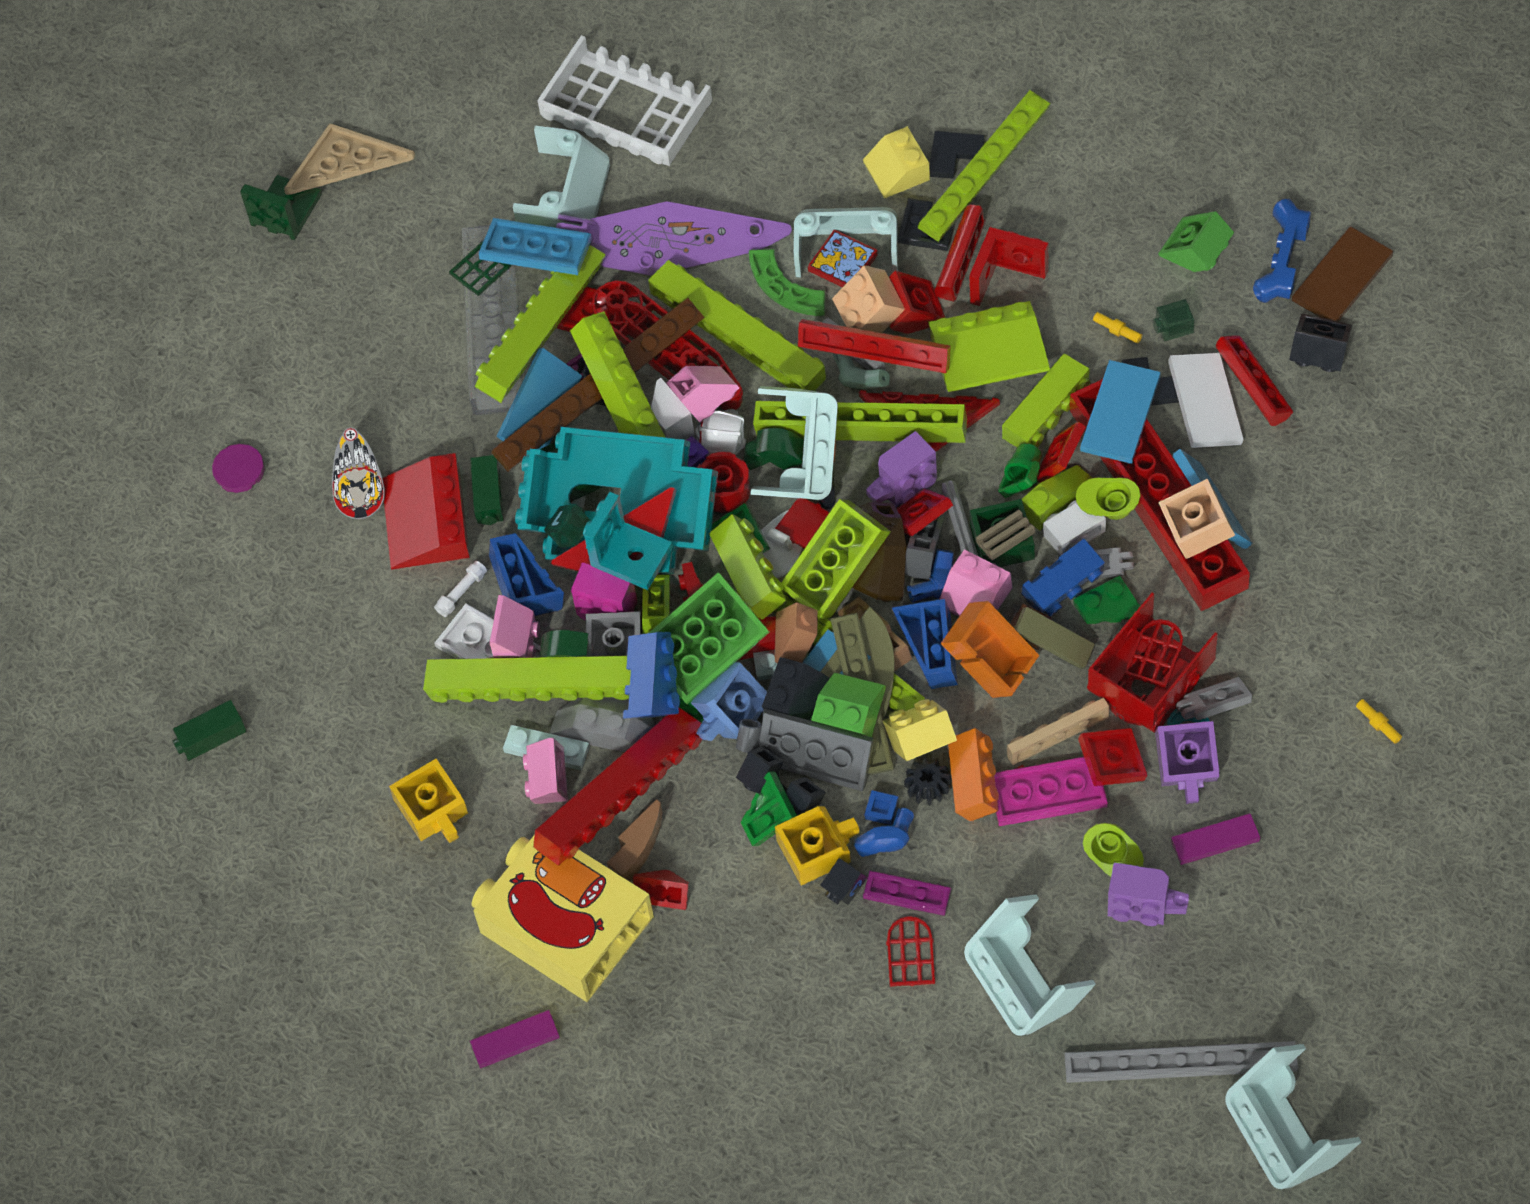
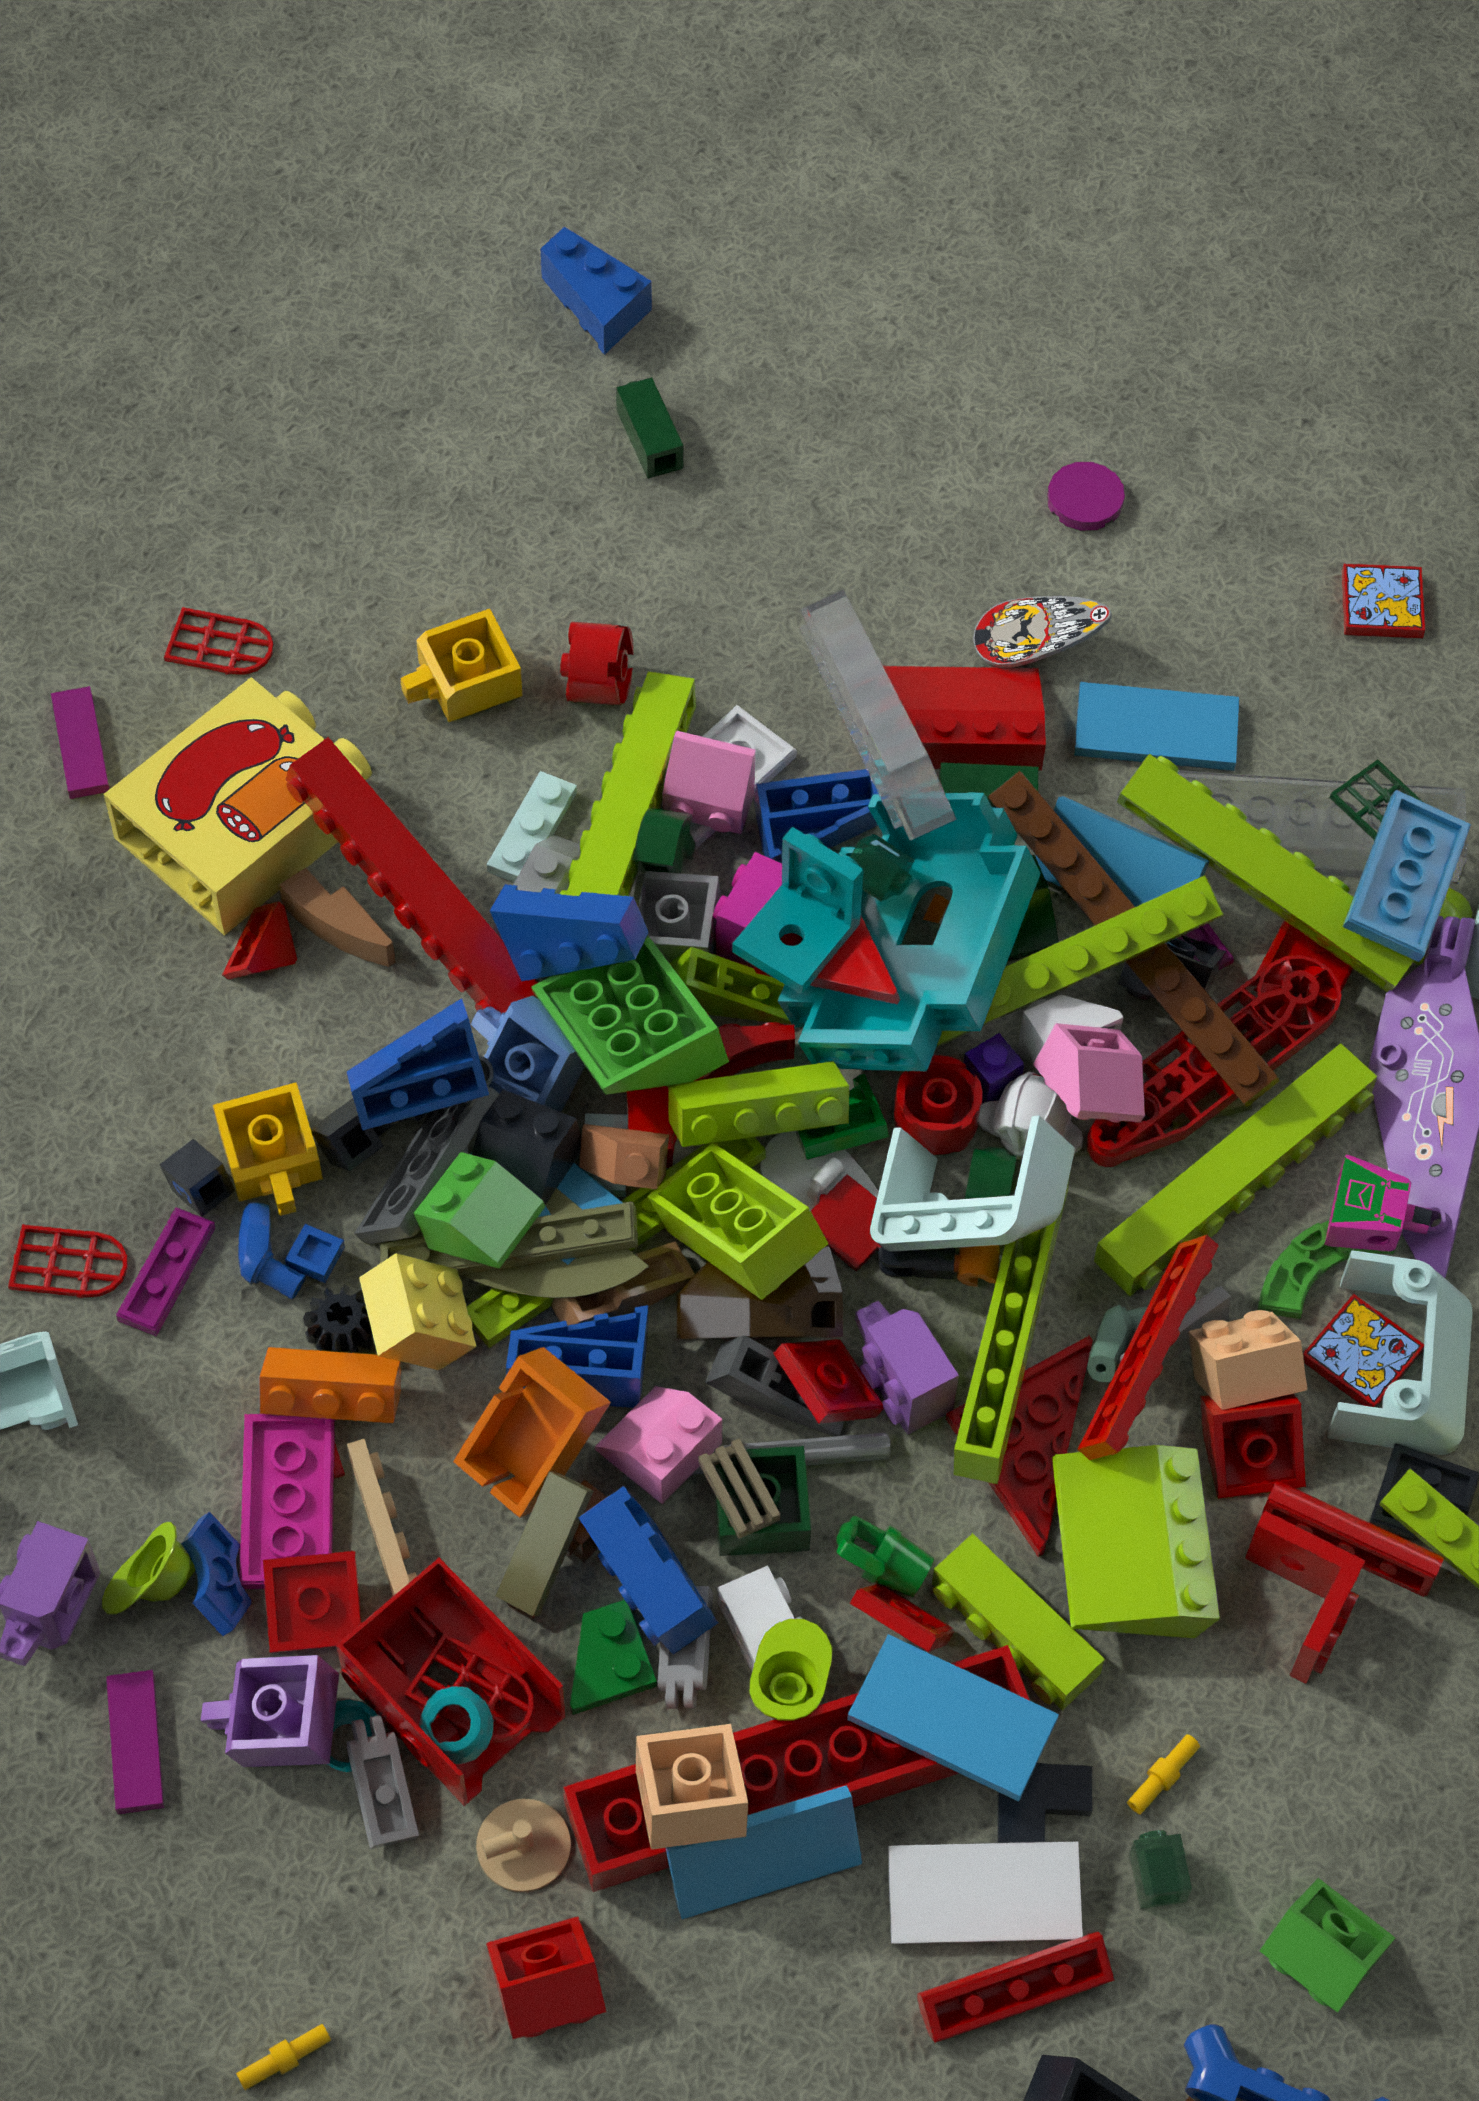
camera: 90 degrees right, 0 degrees up
(86, 785) = (595, 287): none -> blue wedge
(306, 296) = (1383, 601): none -> tile
(410, 979) = (202, 648): none -> red window
(419, 408) = (1165, 723): none -> dark azure tile
(419, 720) = (598, 663): none -> red brick
(446, 605) = (800, 725): white bar -> none
(463, 529) = (875, 717): none -> clear brick
(546, 772) = (471, 811): bright pink slope -> none
(755, 257) = (1372, 1208): none -> torso
(767, 811) = (326, 1089): green wing -> none
(769, 738) = (420, 1071): none -> blue wedge
(941, 567) = (728, 1405): blue arm -> none
(1053, 495) = (824, 1598): lime slope -> none
(1113, 808) = (219, 1588): none -> blue tile
(1166, 657) = (481, 1723): none -> teal piece
(1234, 628) = (523, 1845): none -> tan shield
(1303, 598) = (546, 1978): none -> red slope

